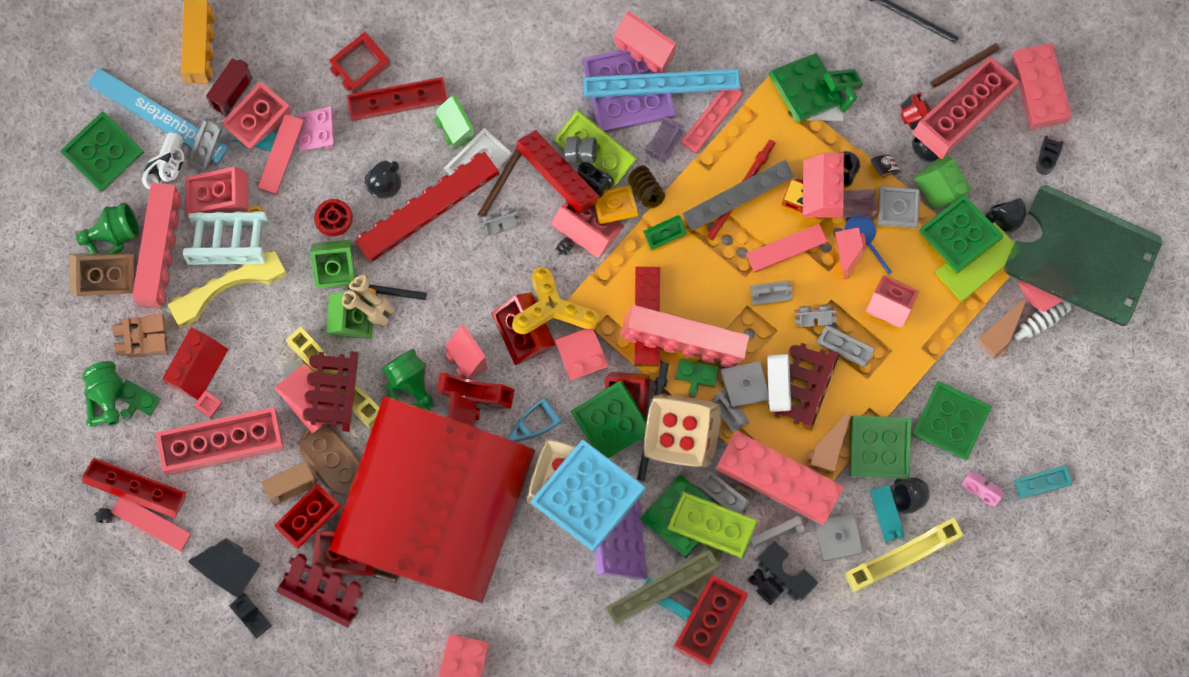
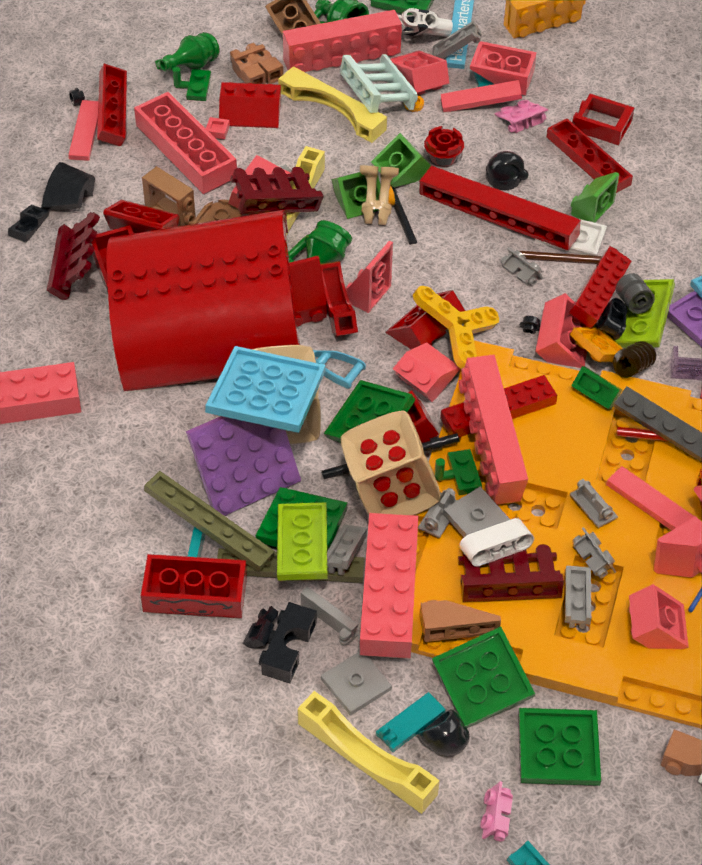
camera: 65 degrees right, 25 degrees down
(229, 86) = (520, 28): dark red window -> none

